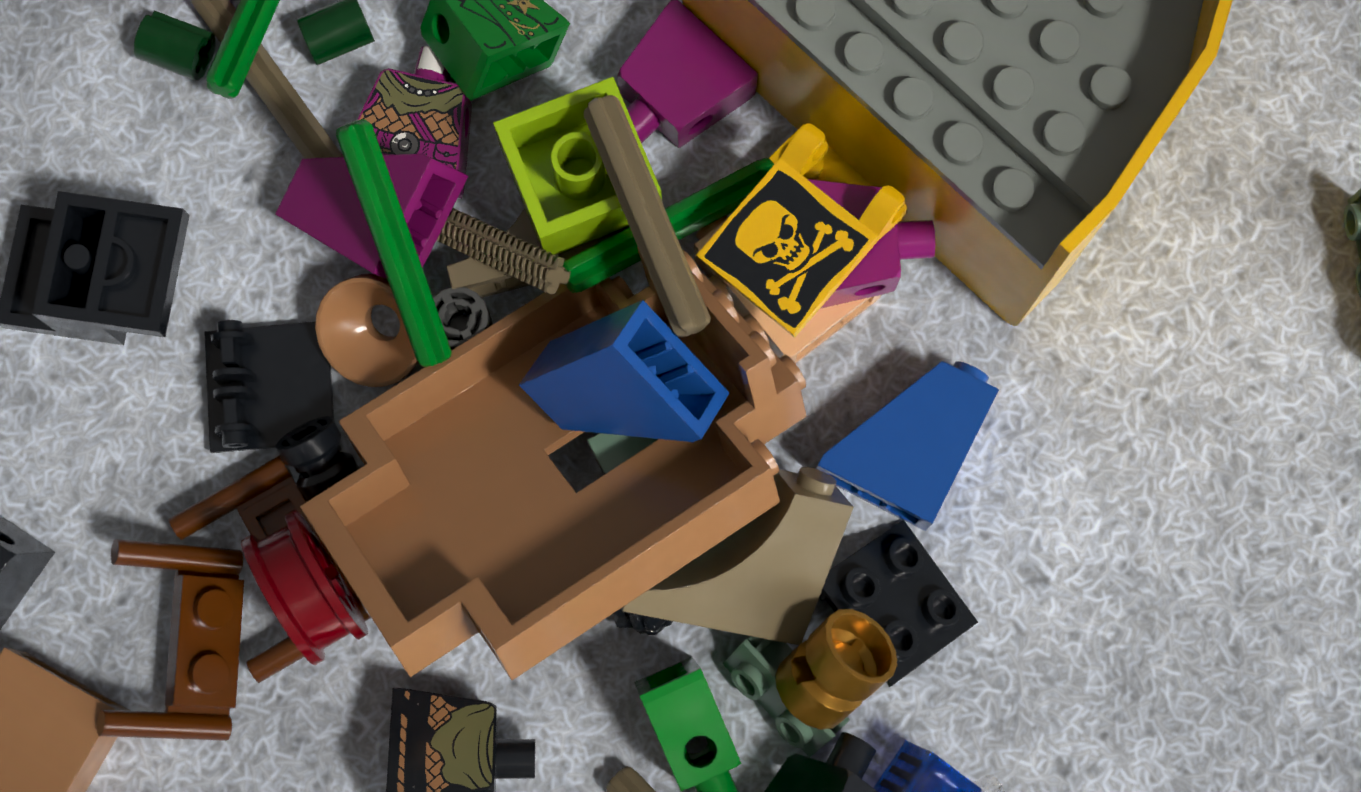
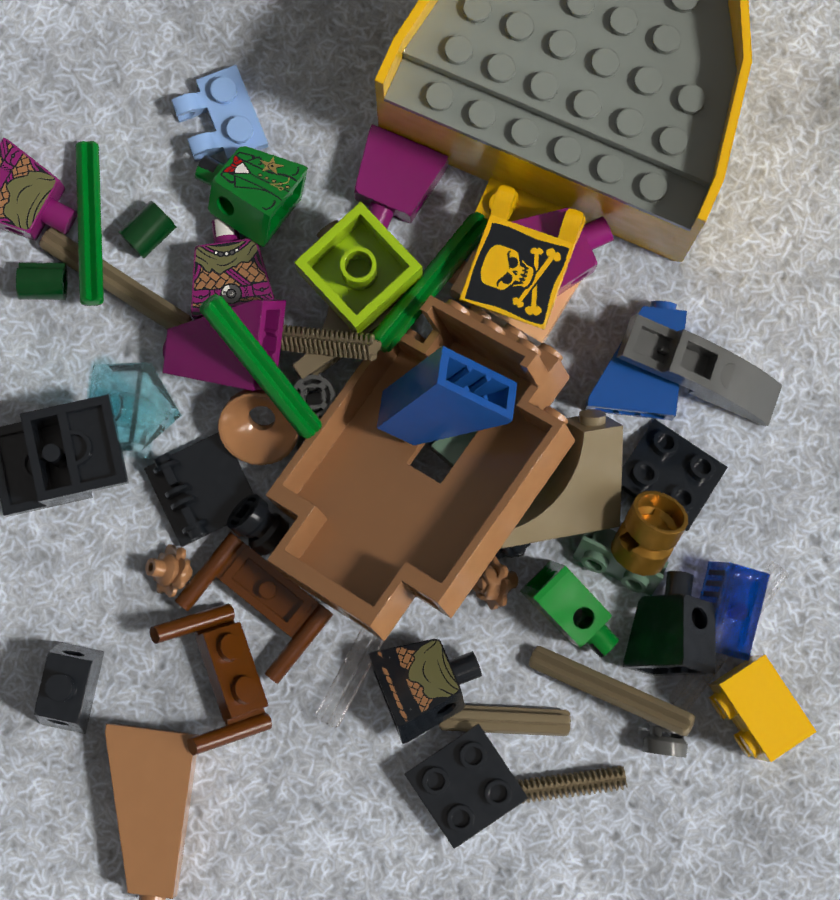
camera: 20 degrees left, 5 degrees up
(181, 477) = (170, 570): none -> medium nougat plant
(222, 247) = (139, 404): none -> clear light blue slope
(304, 587) = (290, 610): dark red wheel -> none
(359, 712) = (348, 679): none -> clear axle
(601, 657) = (495, 584): none -> medium nougat plant
(646, 216) = (421, 288): dark tan axle -> none
(992, 471) = (701, 367): none -> dark grey slope

